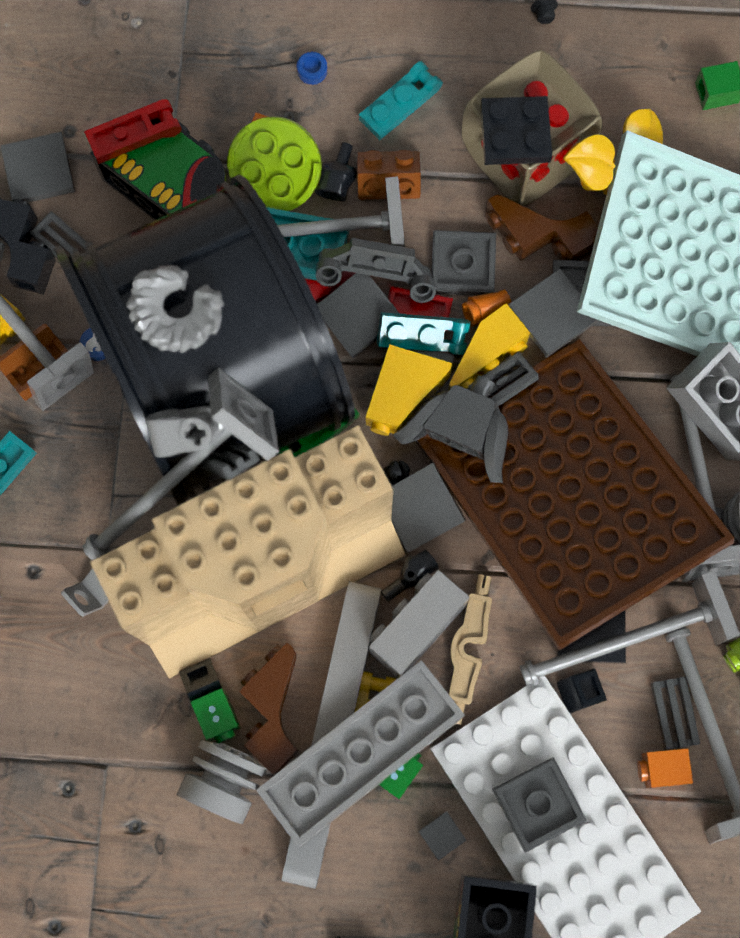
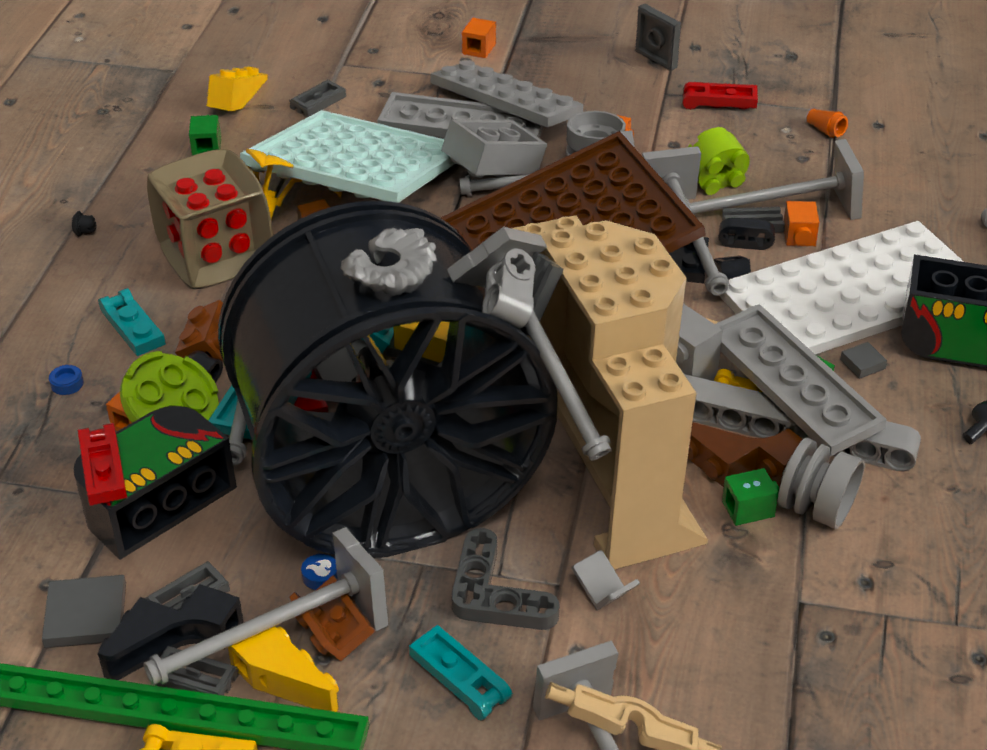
camera: 85 degrees left, 35 degrees down
(80, 489) = (486, 596): none -> dark grey beam
(200, 680) = (713, 505): black plate -> none
(516, 130) = (224, 187): black plate -> none
(539, 805) = (835, 288): dark grey tile -> none
(638, 705) = (746, 233): none -> black beam

